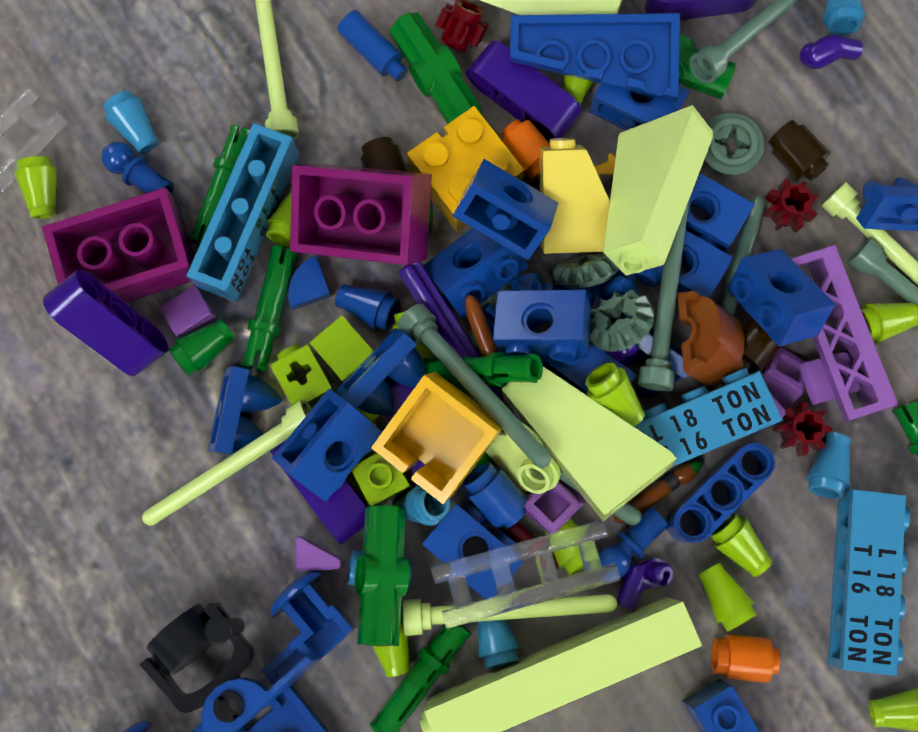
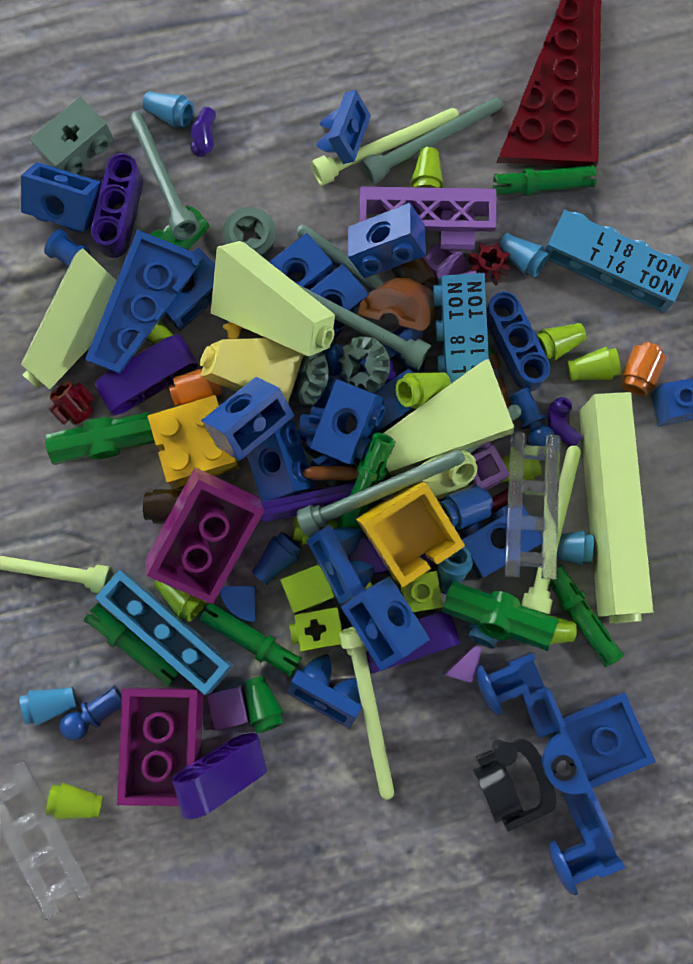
camera: 70 degrees left, 0 degrees up
(372, 45) = (58, 481): blue cylinder -> none
(795, 196) = (311, 198): dark red gear -> none
(799, 151) = (274, 184): dark brown brick -> none

